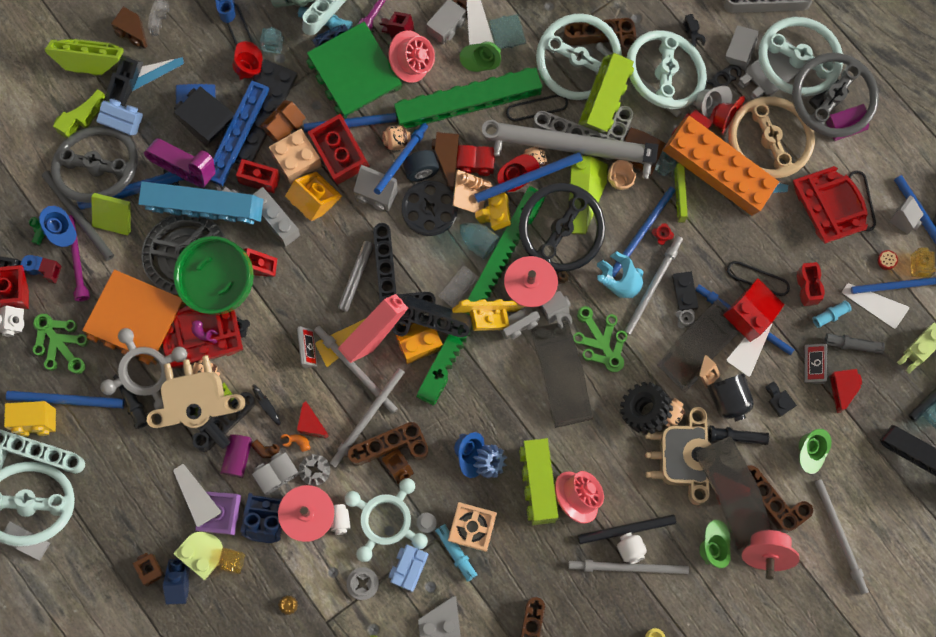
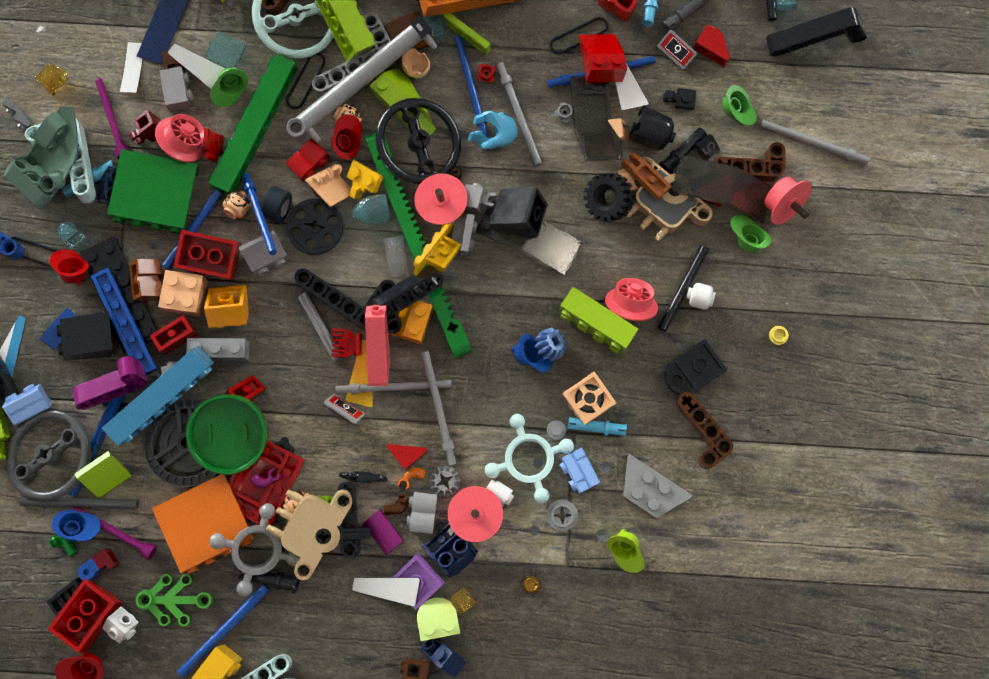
camera: 45 degrees left, 5 degrees up
(359, 308) = (348, 344): none -> red piece
(386, 447) = (467, 411): reddish brown beam -> none
(397, 466) = (495, 415): reddish brown bracket -> none
(426, 82) = (212, 144): none -> red piece
(446, 155) = (281, 176): reddish brown slope -> none
(528, 177) = (358, 131): blue piece -> none
(570, 592) = (695, 368): none -> black tile
(571, 348) = (519, 212): none -> black slope
(589, 566) = (688, 336): light grey bar -> none
(601, 342) = (544, 190): bright green plant -> none
(685, 291) = (543, 95): black plate -> none
(688, 423) = (646, 176): none -> dark orange hinge
(758, 453) = (707, 147): none -> black tile

